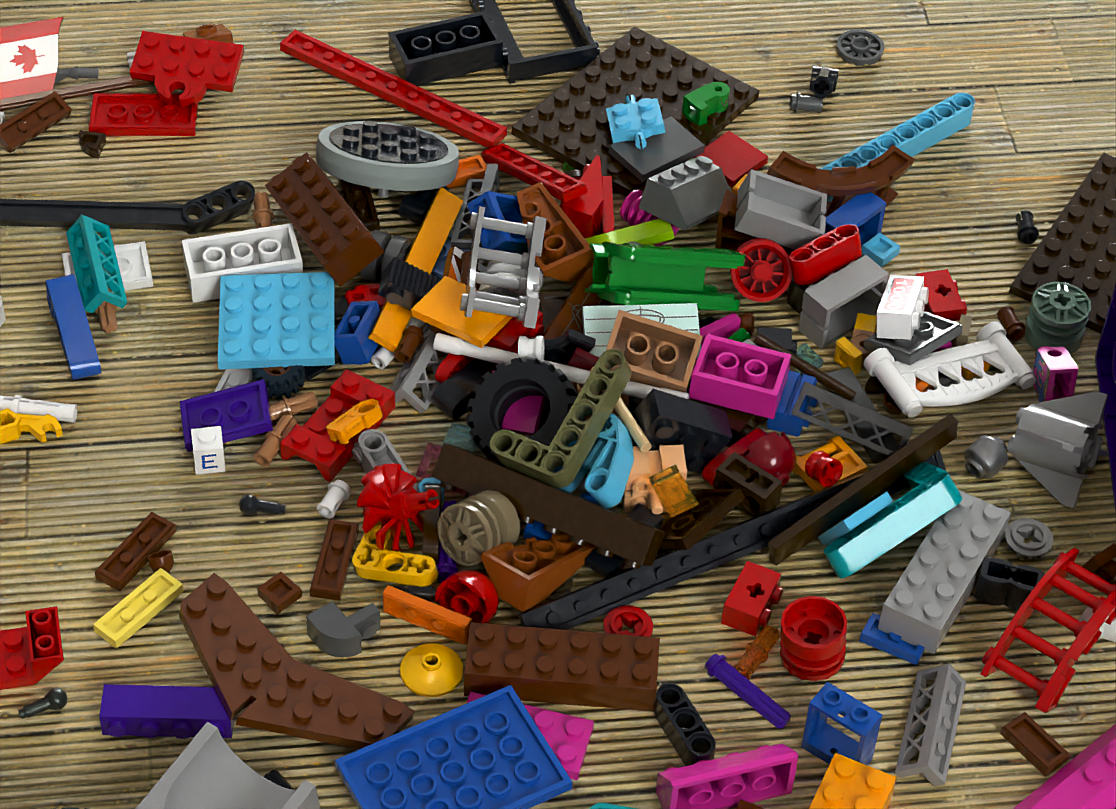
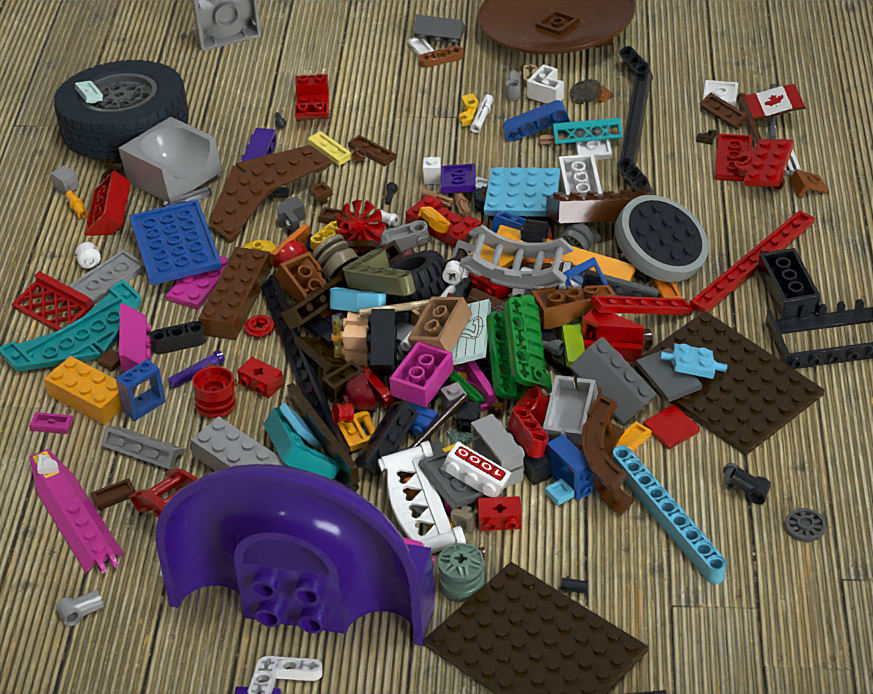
camera: 105 degrees right, 5 degrees down
(705, 101) = (718, 405): green leg -> none

